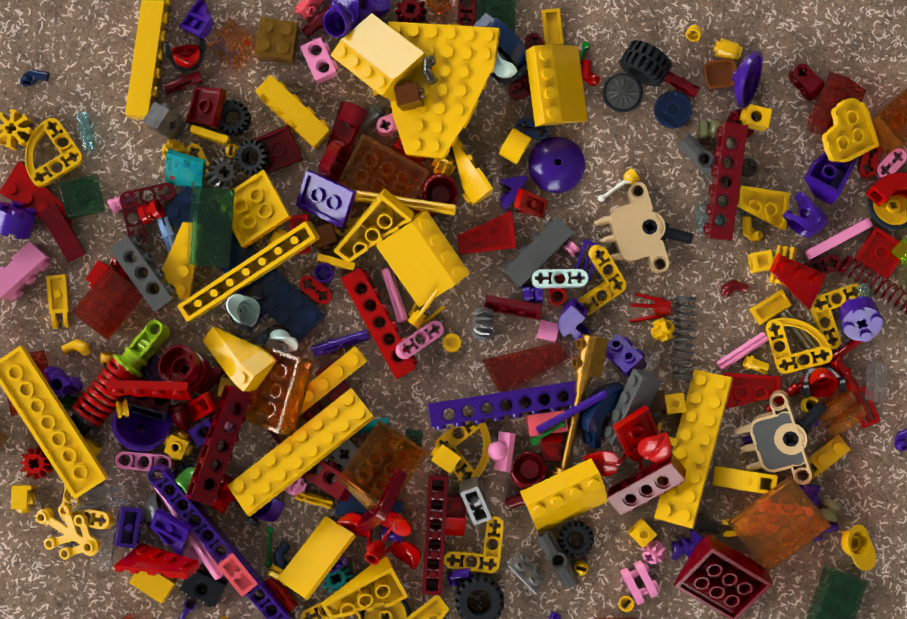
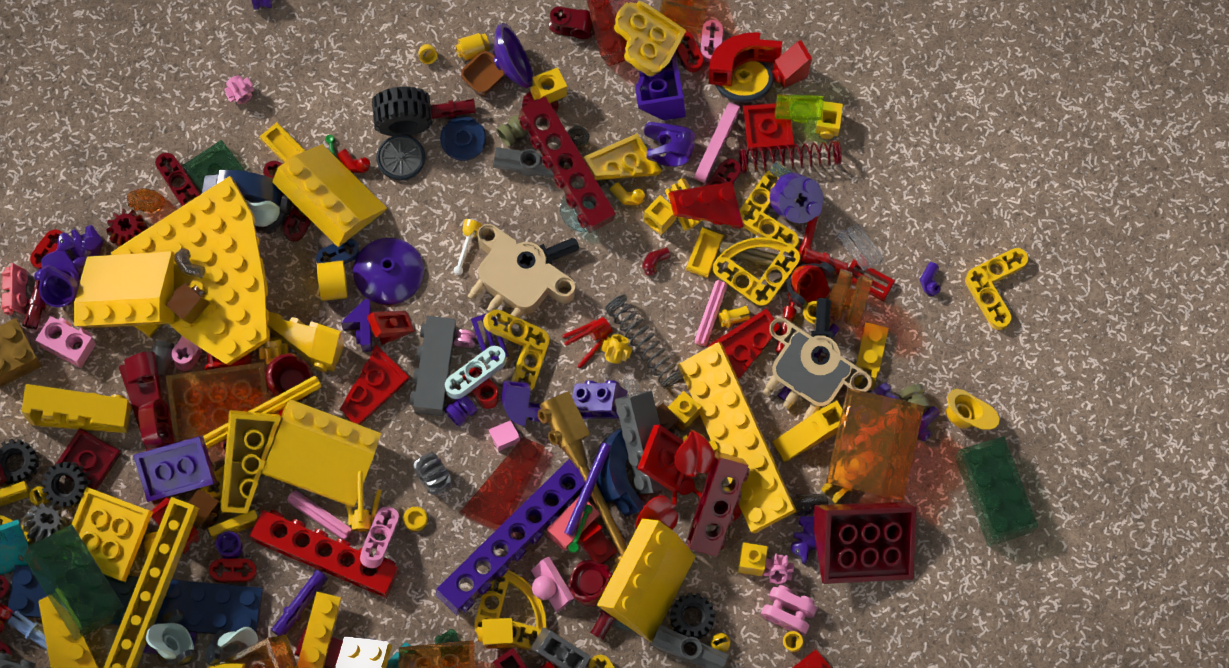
camera: 40 degrees left, 15 degrees down
(513, 307) = (452, 435): dark red tile -> none

